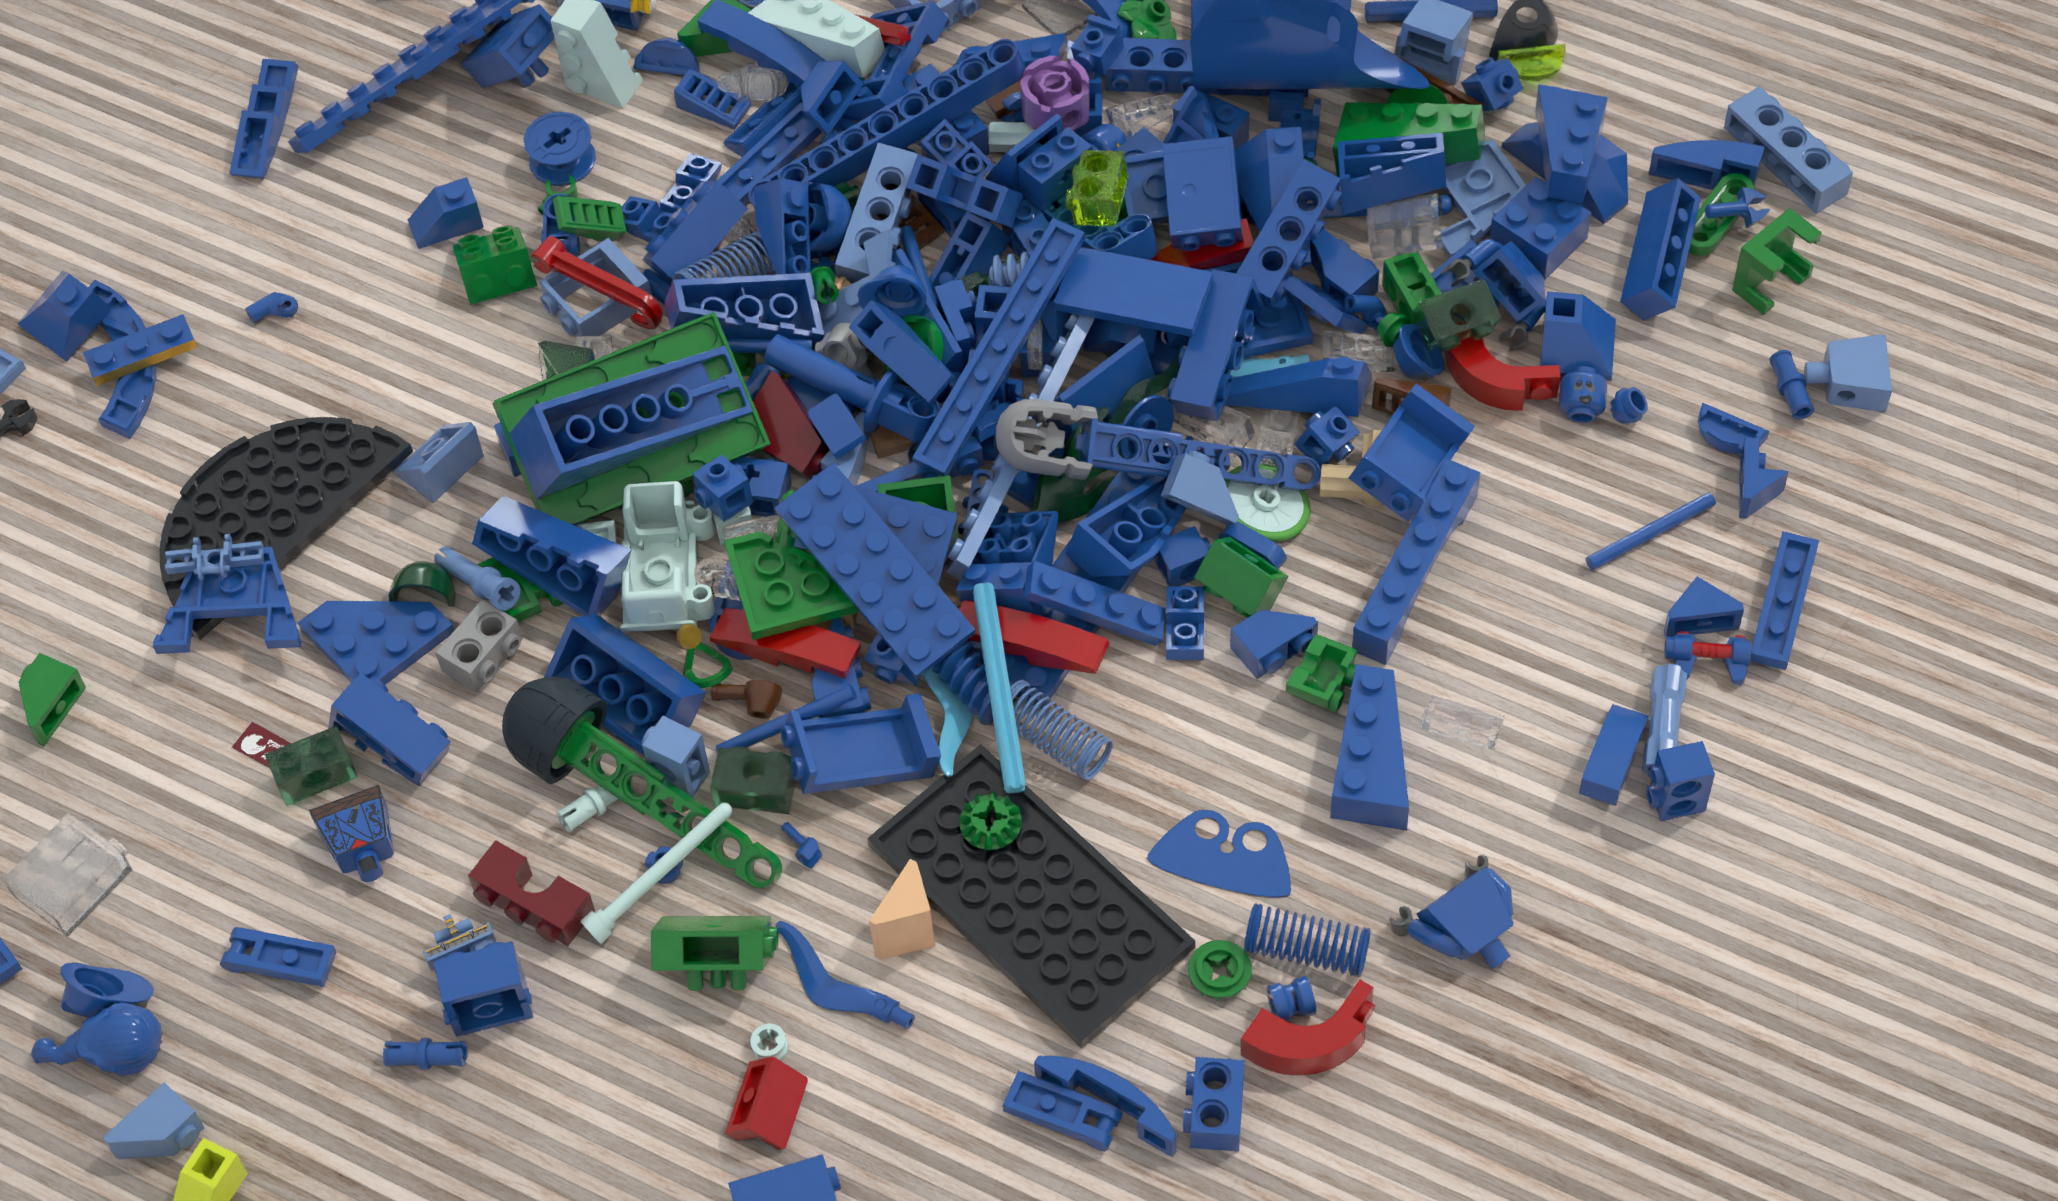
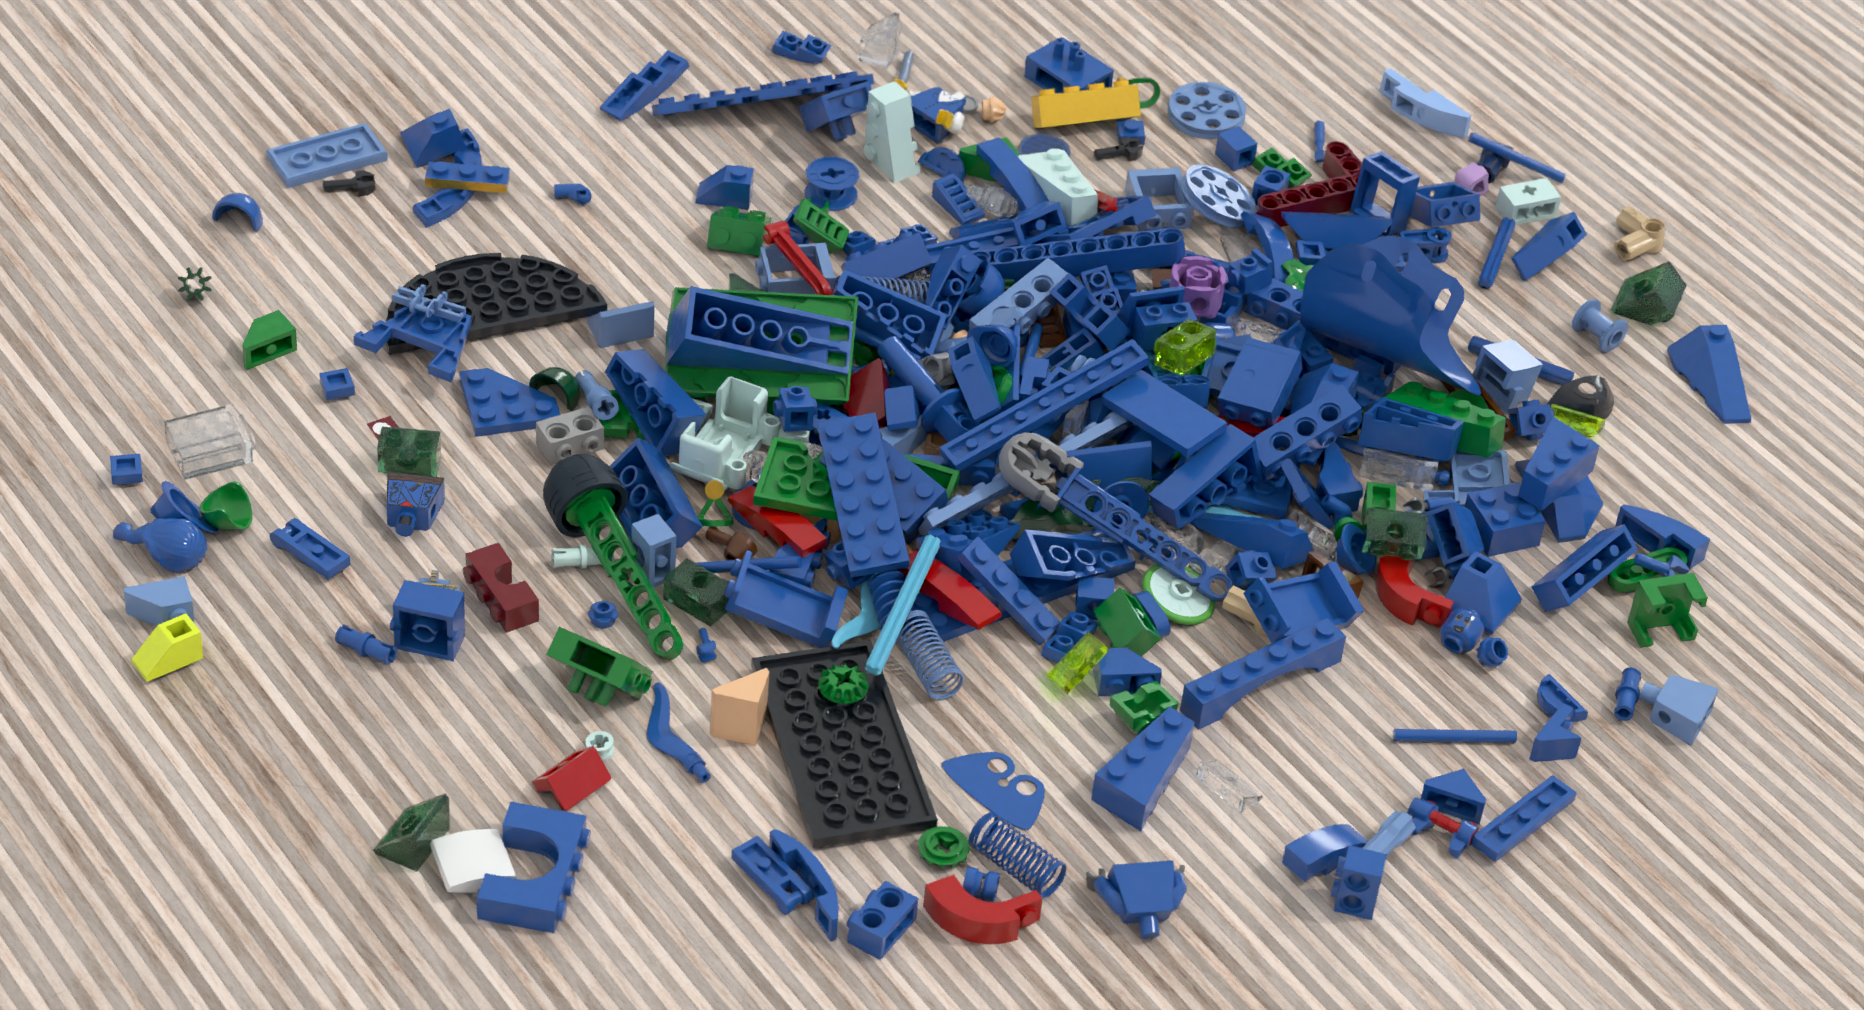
camera: 20 degrees right, 15 degrees down
(149, 956) = (227, 507): none -> green helmet
(166, 714) = (337, 384): none -> blue plate
(389, 728) = (474, 451): blue wedge -> none
(602, 921) = (537, 624): light aqua piece -> none
(824, 284) = (958, 323): green pin -> none
(1200, 487) = (1130, 552): medium blue slope -> none
(1220, 655) = (1077, 662): none -> clear neon green plate
(1789, 149) = (1731, 553): medium blue brick -> none

